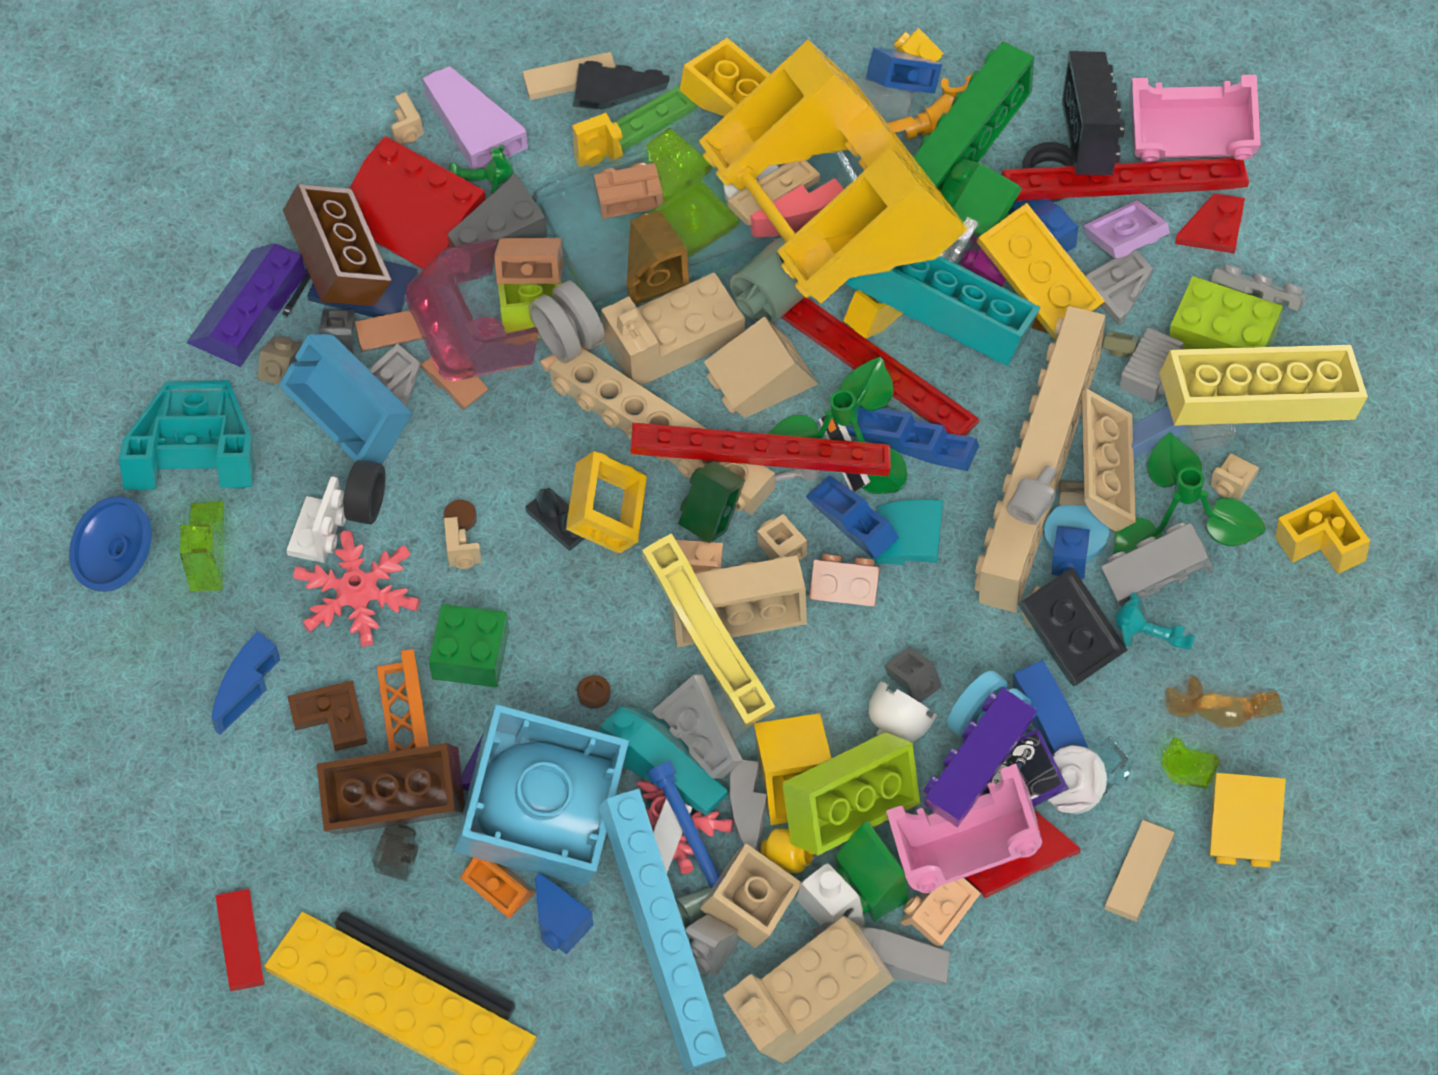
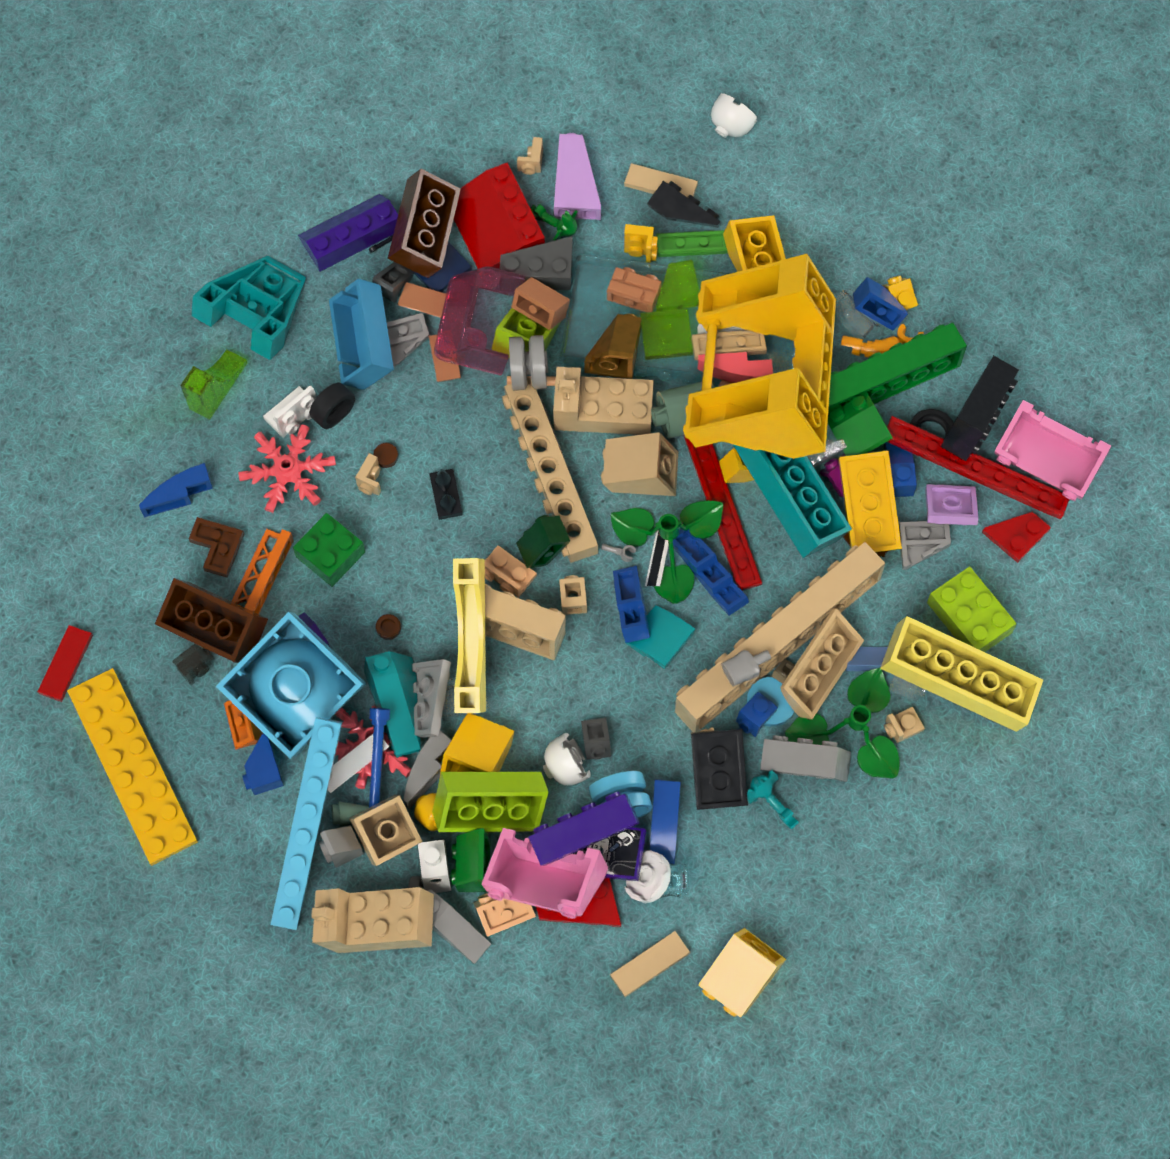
camera: 30 degrees right, 10 degrees up
(110, 544) = (156, 350): blue dish -> none
(276, 358) = (343, 277): dark tan bracket -> none
(424, 965) = (163, 750): black axle -> none
(594, 525) = (459, 517): yellow window -> none
(760, 449) = (599, 523): red tile -> none
(845, 581) = (597, 645): bracket -> none
(1120, 343) = (892, 584): olive plate -> none
(1142, 372) = (909, 603): light grey brick -> none
(1189, 766) = (730, 911): clear neon green bracket -> none
(1220, 709) = (781, 887): clear orange piece -> none
(1232, 277) = (1018, 606): light grey wing -> none
(1324, 527) = (937, 798): yellow brick -> none

